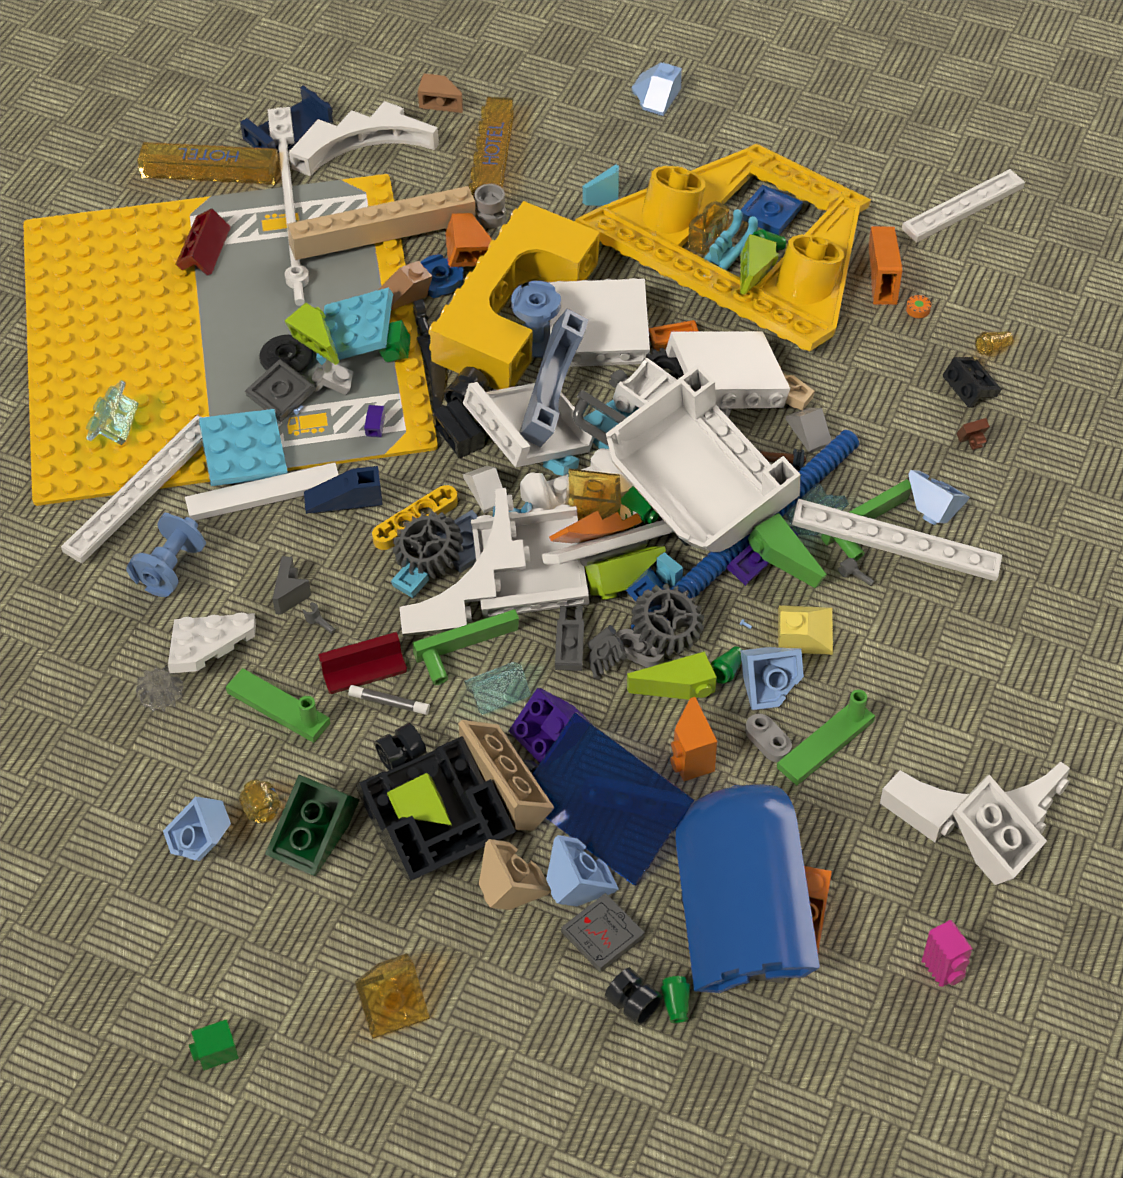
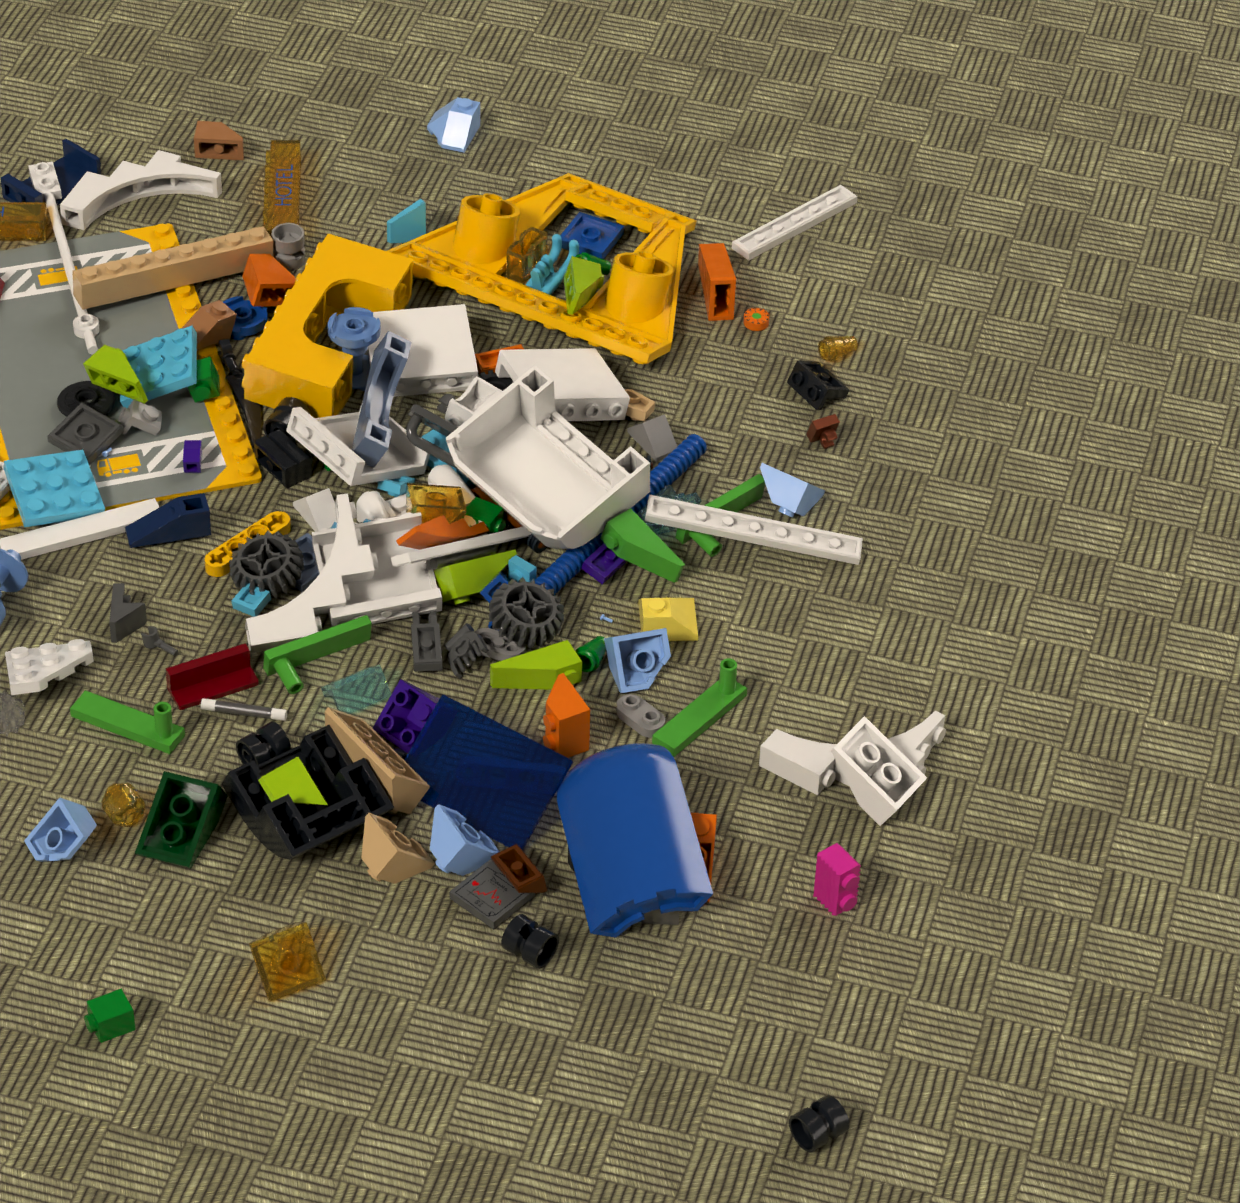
camera: 10 degrees left, 10 degrees down
(631, 911) = (520, 870): none -> reddish brown slope
(676, 998) = (573, 941): green cone -> none
(850, 567) = (708, 560): dark grey hand -> none

